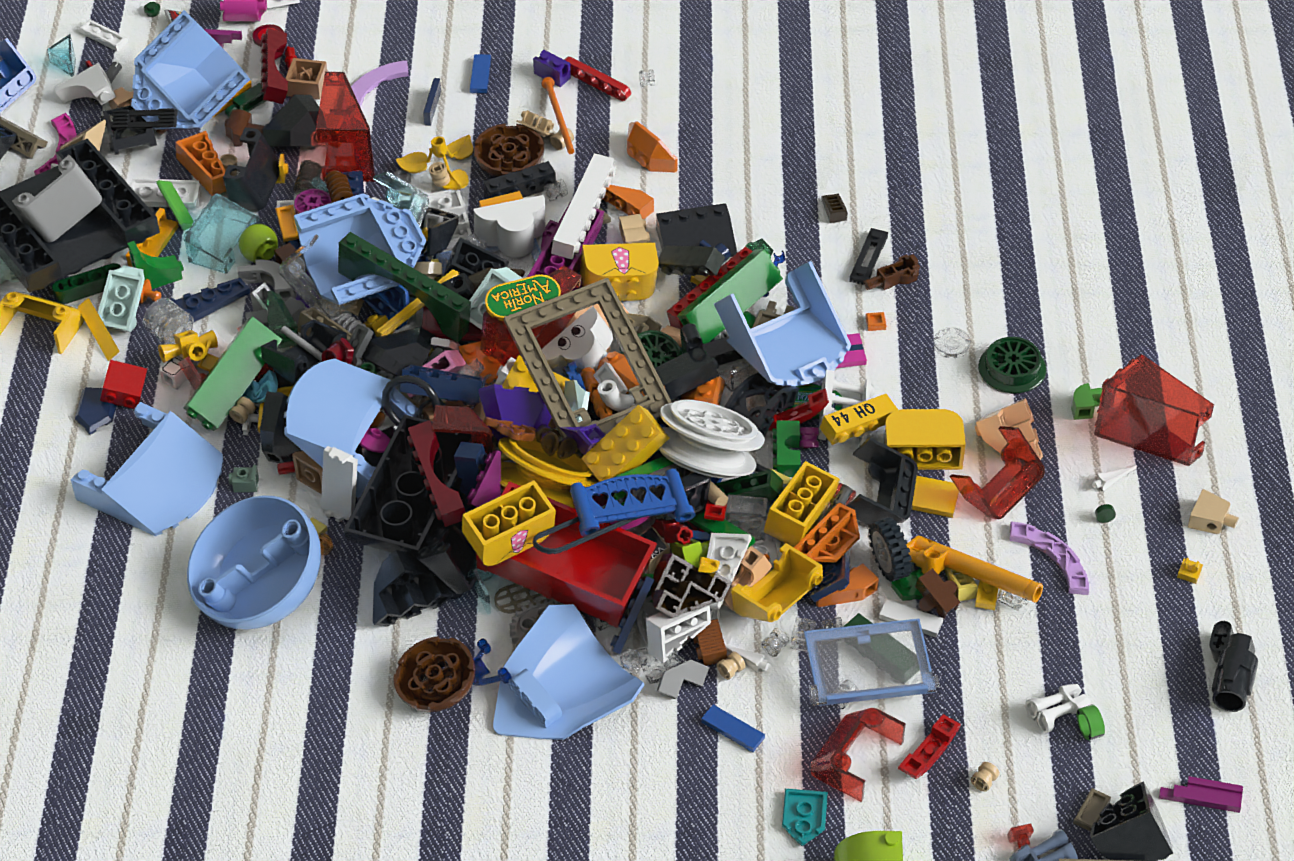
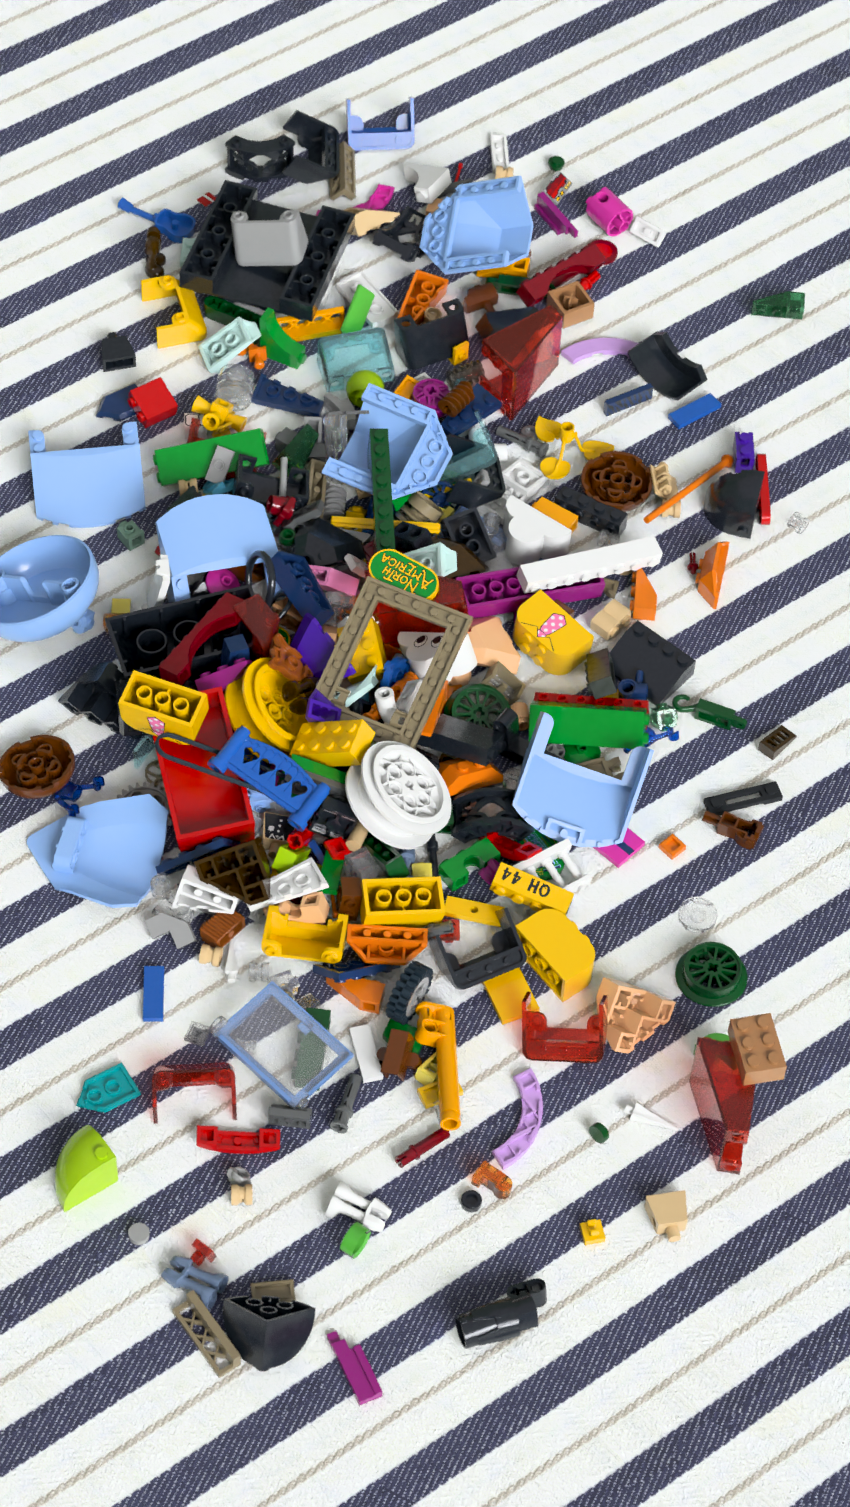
camera: 50 degrees right, 5 degrees up
(40, 380) = (117, 353): none -> black torso
(63, 55) = (450, 146): clear light blue slope -> none
(98, 329) = (194, 352): yellow sticker -> none
(122, 118) = (431, 246): black container -> none
(128, 43) = (503, 173): none -> tan wheel
(250, 370) = (220, 465): none -> light grey plate
(414, 179) = (529, 443): none -> dark grey pin
(424, 64) = (662, 367): none -> black panel
(439, 174) = (545, 453): tan wheel -> none
(599, 96) = (734, 502): none -> black brick
(626, 158) = (692, 566): none -> dark red piece
(708, 565) = (273, 873): yellow tile -> none
(767, 534) = (349, 897): none -> reddish brown brick
(777, 226) = (711, 713): none -> dark green piece
(798, 720) = (197, 1033): none -> clear tile
(843, 465) = (472, 911): none -> yellow tile
(933, 702) = (286, 1116): none -> dark grey bracket
(957, 662) = (344, 1110): none -> dark grey pin
(965, 769) = (238, 1176): none -> light grey piece
(1031, 637) = (415, 1151): none -> dark red axle
(1097, 603) = (493, 1180): none -> clear orange leg
(1103, 630) = (471, 1201): none -> black tile
(1148, 352) = (756, 1049): none -> medium nougat brick

